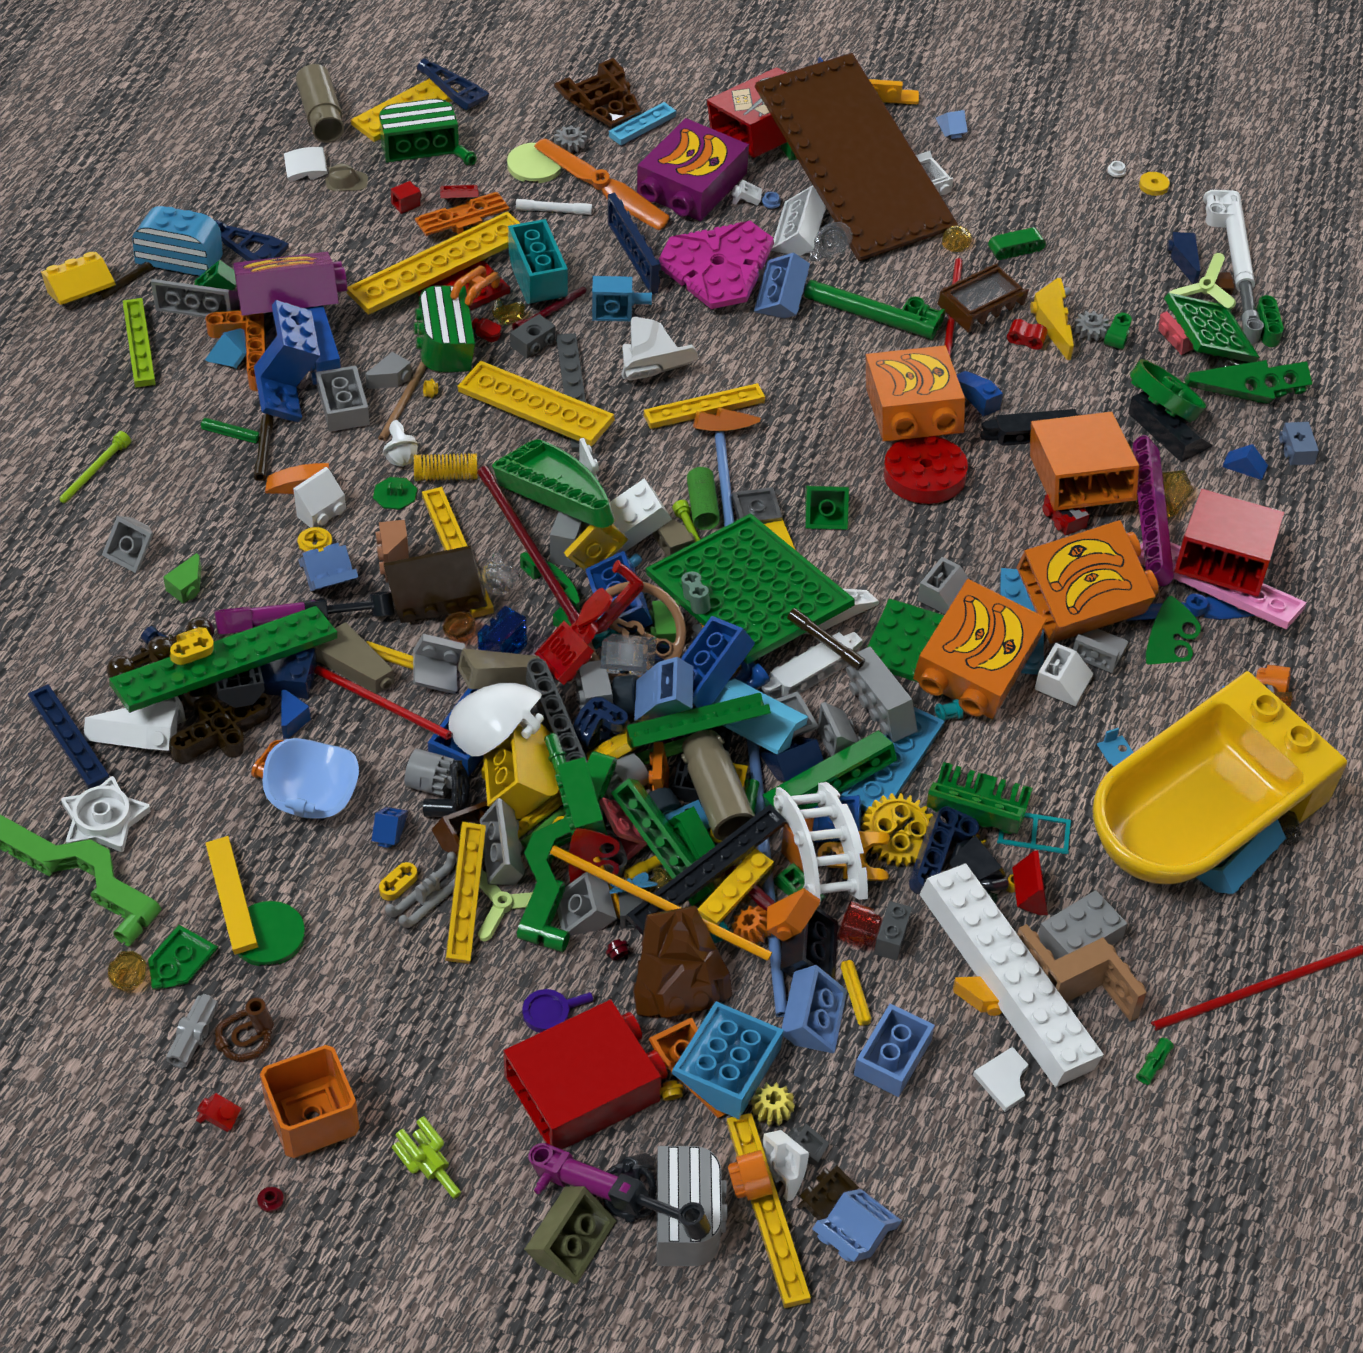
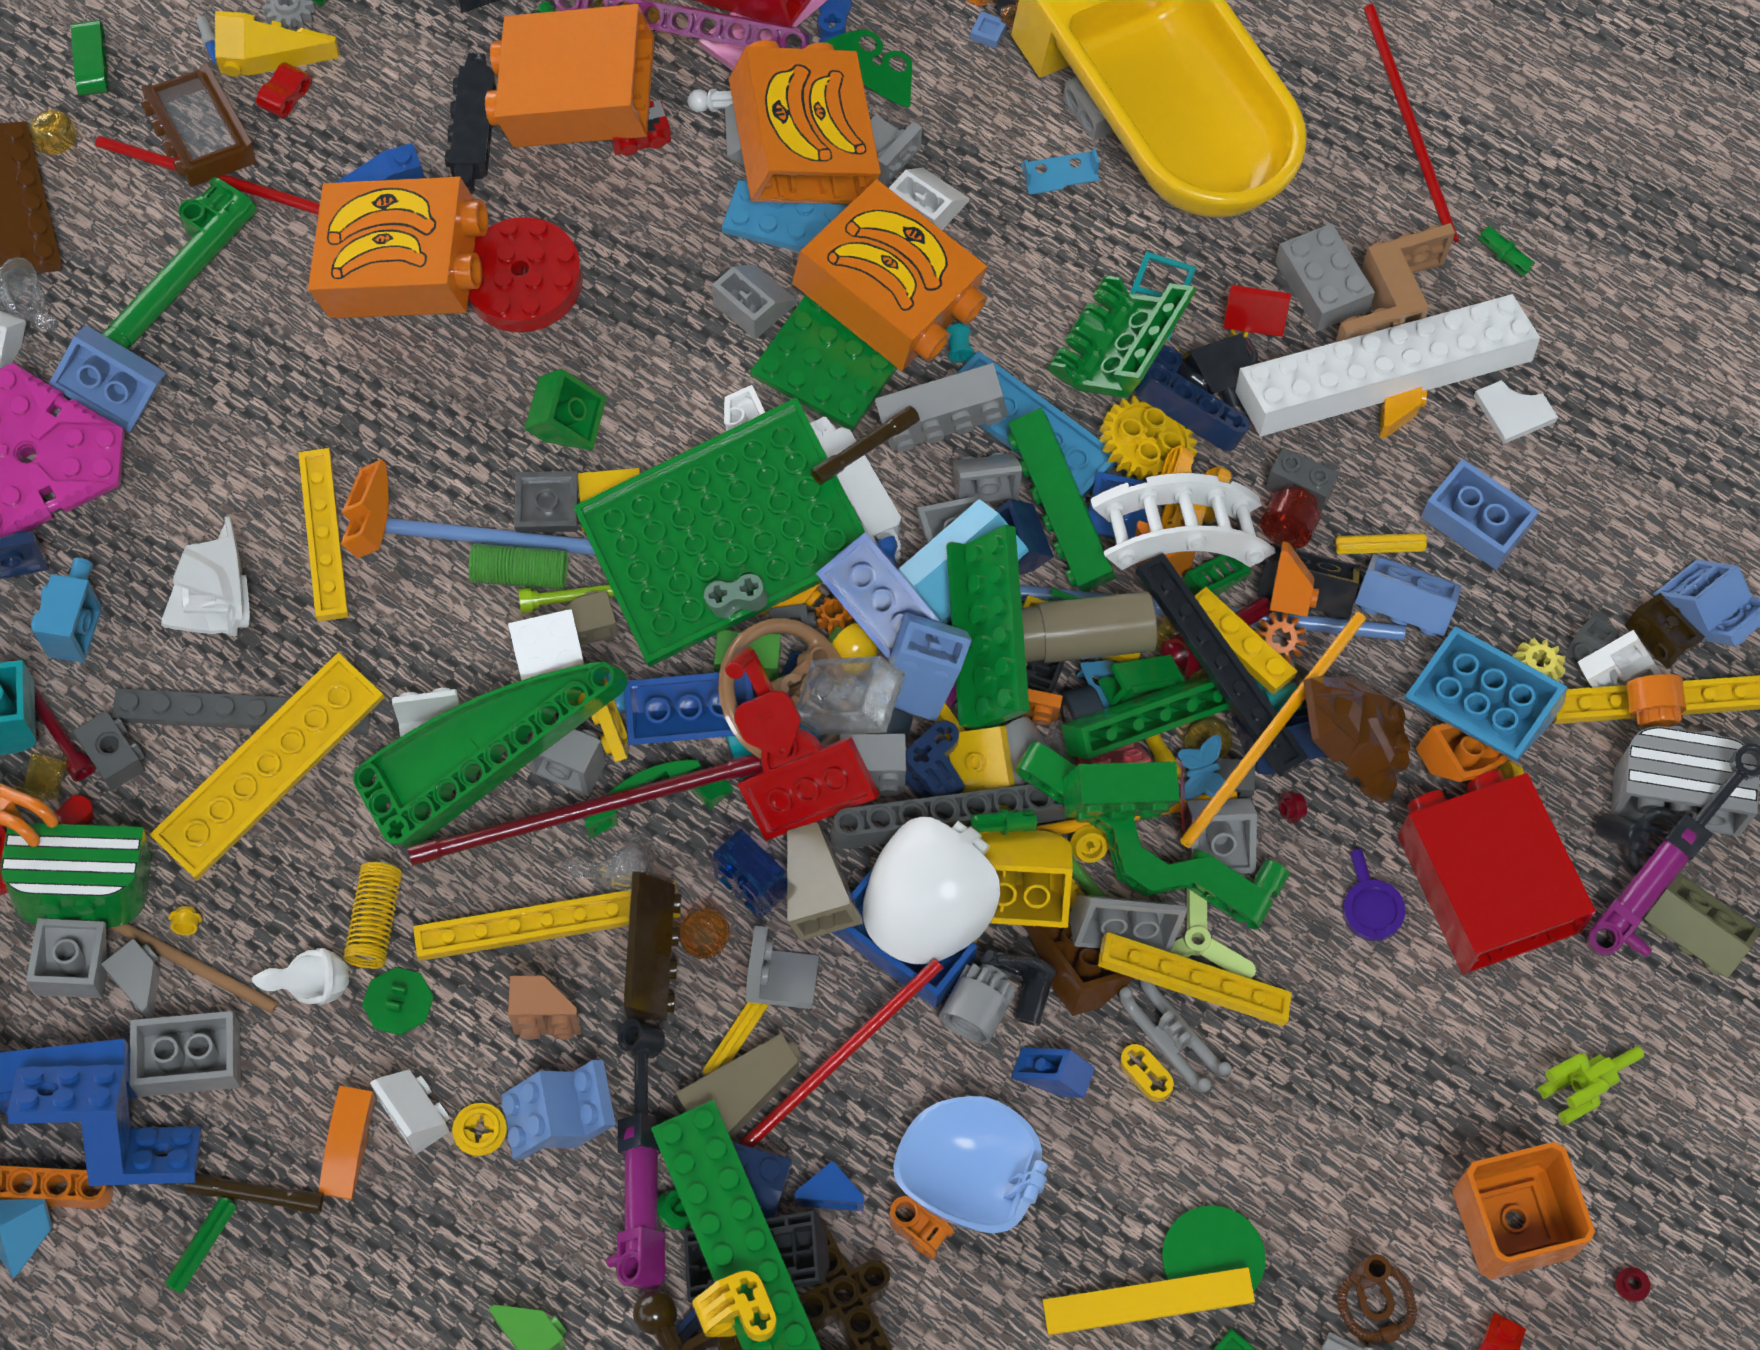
camera: 80 degrees left, 15 degrees up
(394, 336) = (68, 958): none -> light grey slope

